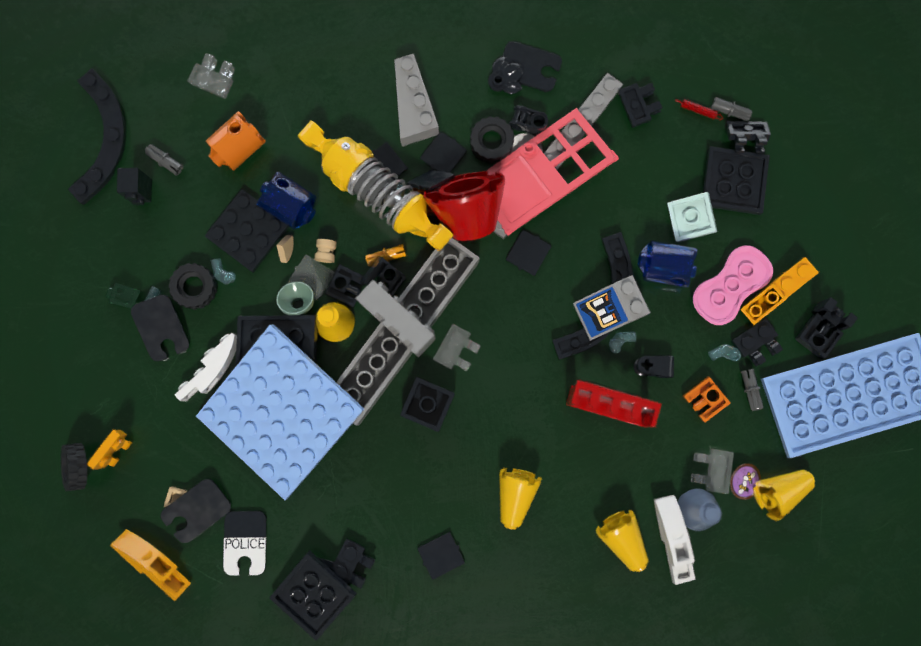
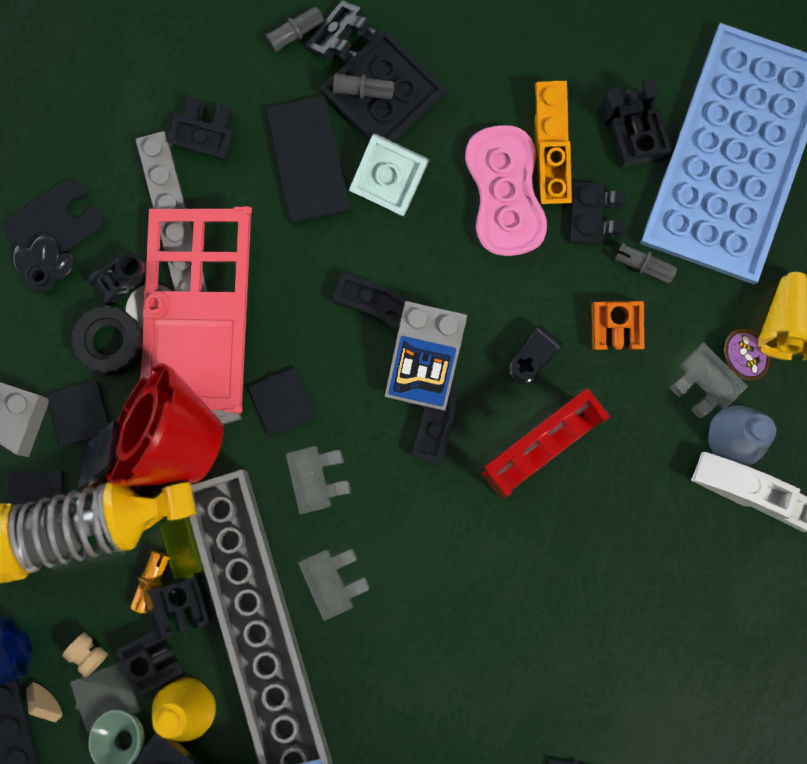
camera: 55 degrees left, 0 degrees up
(396, 318) = (238, 634): light grey wedge -> none
(415, 258) = (182, 548): none -> clear neon green piece
(427, 404) = (375, 671): black brick -> none
(498, 298) = (309, 480): none -> clear plate
(516, 495) = (565, 643): yellow cone -> none
(619, 339) = (469, 372): clear light blue arm -> none
(624, 539) = (713, 552): yellow cone -> none
(666, 169) = (308, 160): none -> black tile
(667, 263) = (423, 247): clear blue cylinder -> none
(699, 109) = (265, 65): red piece -> none
(725, 351) = (577, 258): clear light blue arm -> none
(728, 167) = (363, 86): none -> dark grey axle

